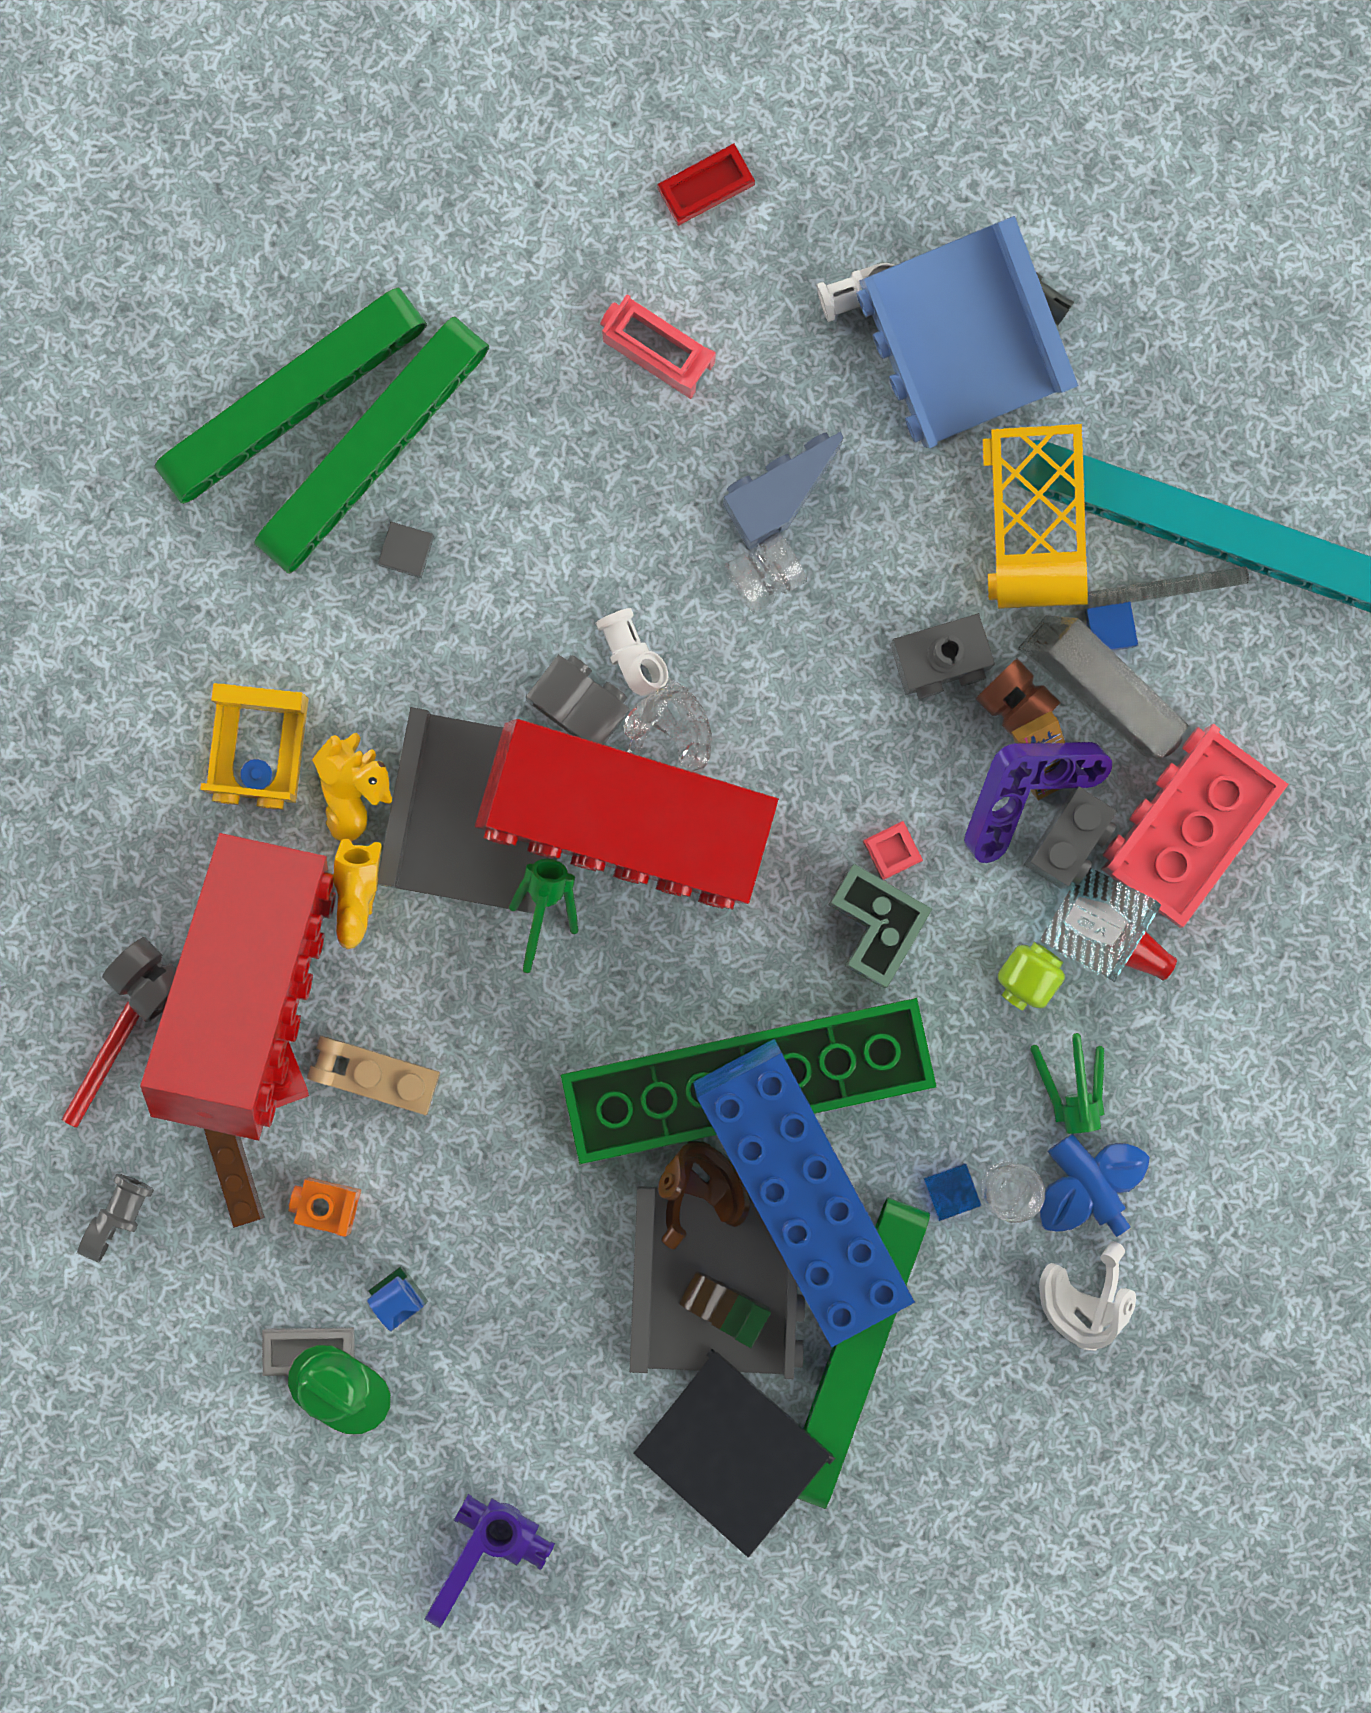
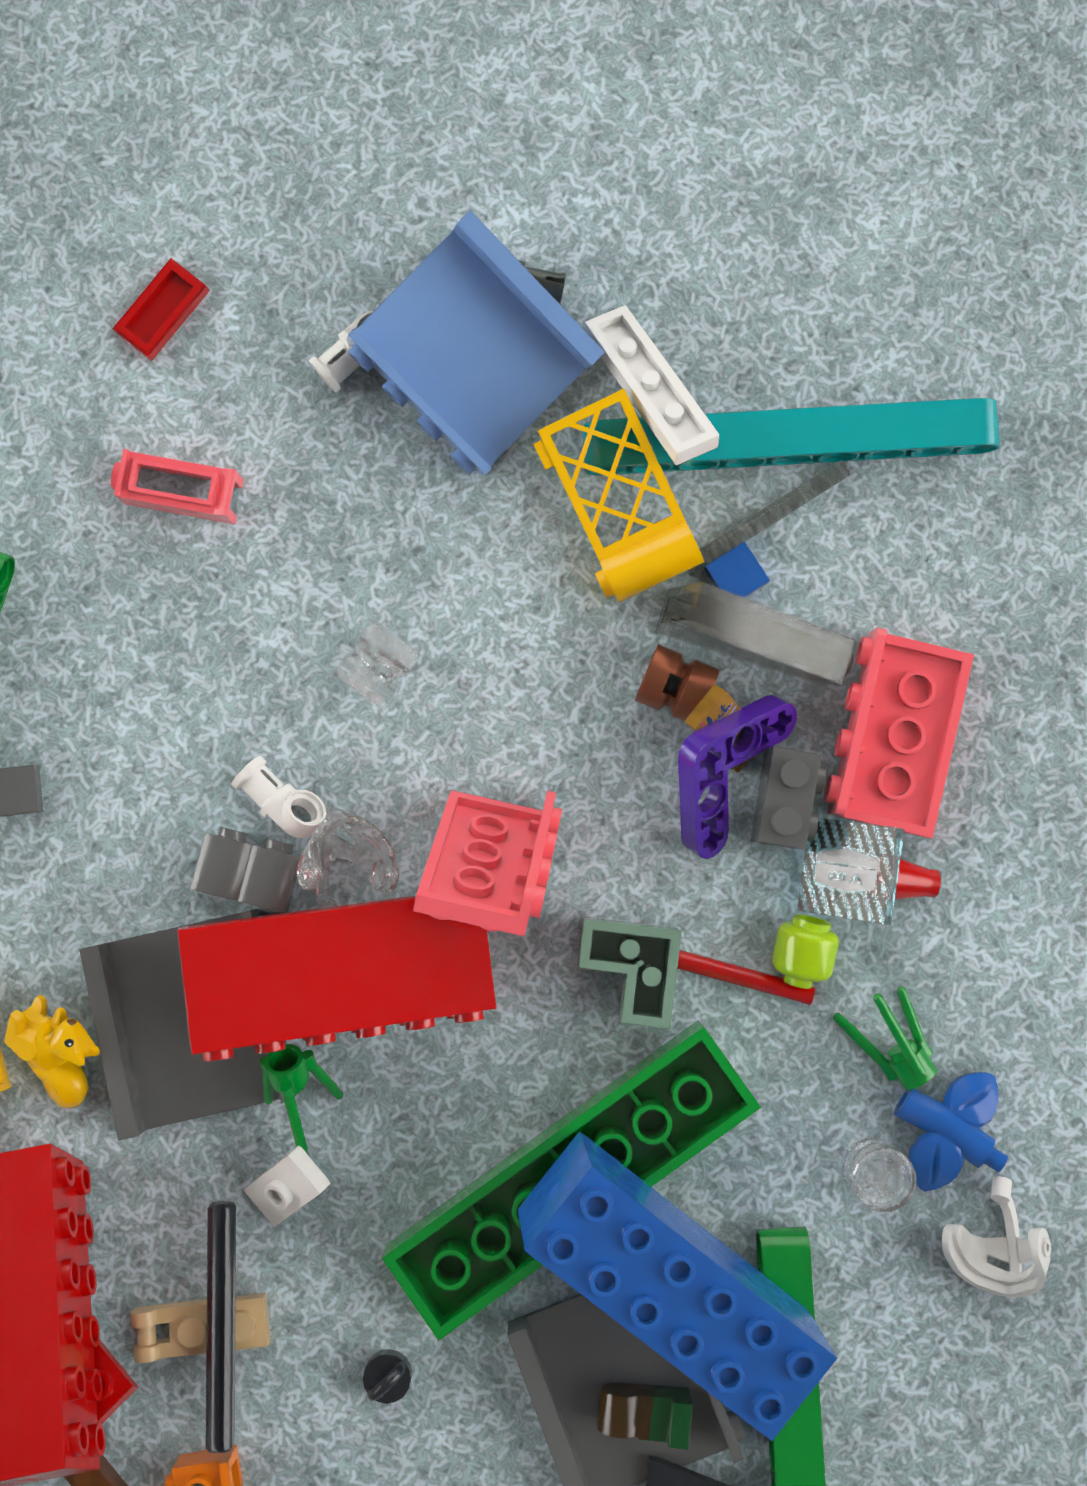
camera: 25 degrees left, 0 degrees up
(356, 885) = (99, 1153): yellow animal -> none
(396, 1077) = (220, 1326): none -> black axle
(501, 984) = (287, 1186): none -> white plate
(515, 1186) = (387, 1376): none -> black tile
(722, 1190) = (541, 1318): reddish brown helmet -> none
(775, 498) = (358, 583): sand blue slope -> none
(795, 778) = (489, 863): none -> coral bracket
(892, 850) = (617, 883): coral tile -> none
(942, 656) = (585, 671): dark grey brick -> none
(952, 1191) = (817, 1194): clear blue tile -> none
(967, 978) = (743, 977): none -> red bar
(1107, 431) = (652, 385): none -> white plate

